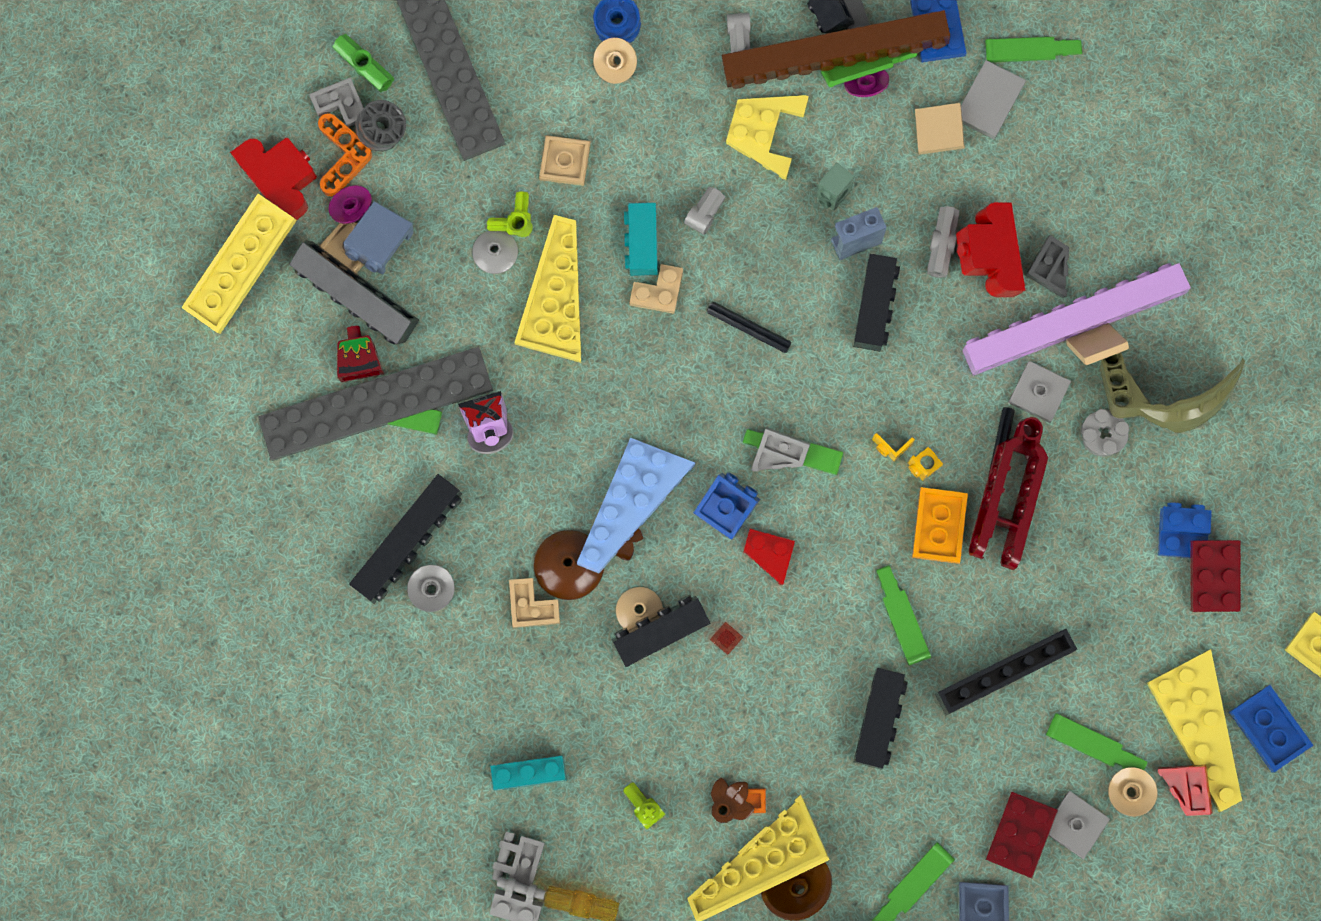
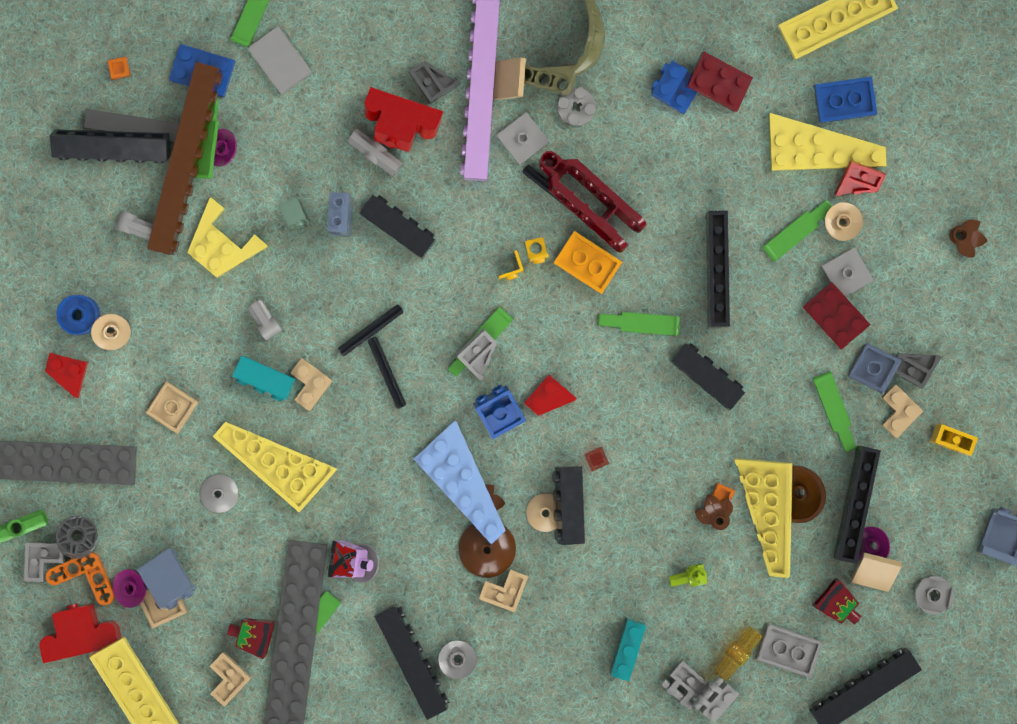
camera: 75 degrees left, 10 degrees up
(301, 358) = (233, 678): none -> tan plate
(353, 292) = (201, 617): brick -> none
(520, 214) = (202, 473): lime axle -> none
(550, 38) = (67, 372): none -> red wing
(711, 365) = (386, 372): none -> black axle
(939, 128) = (285, 110): tan tile -> none

